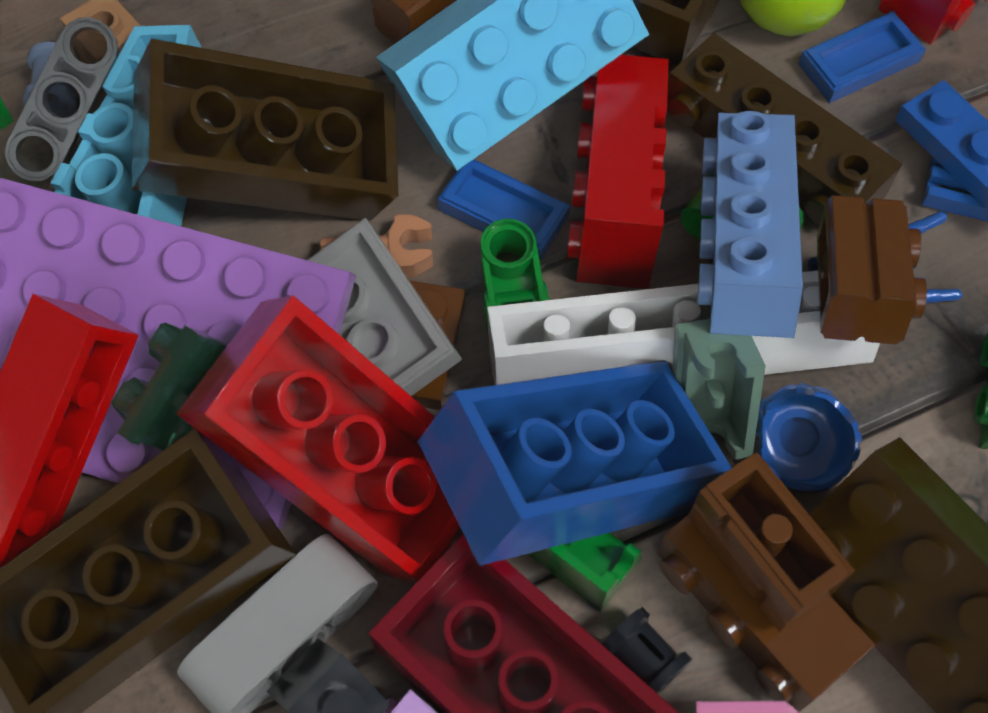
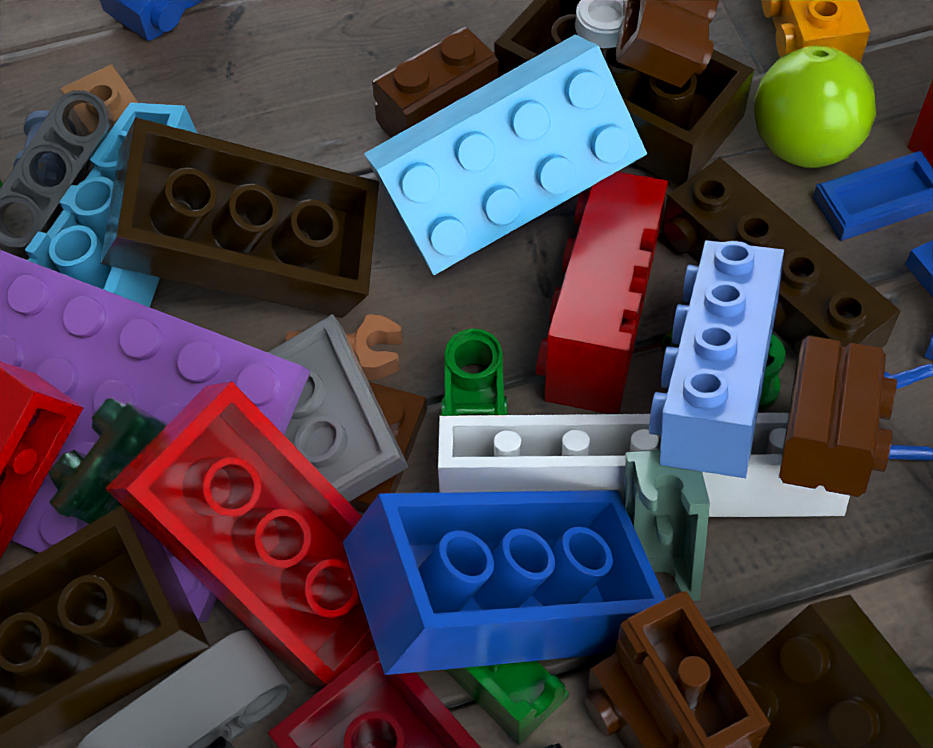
camera: 10 degrees right, 5 degrees down
(486, 195) = (463, 302): blue tile -> none
(807, 437) = (755, 585): blue hair -> none

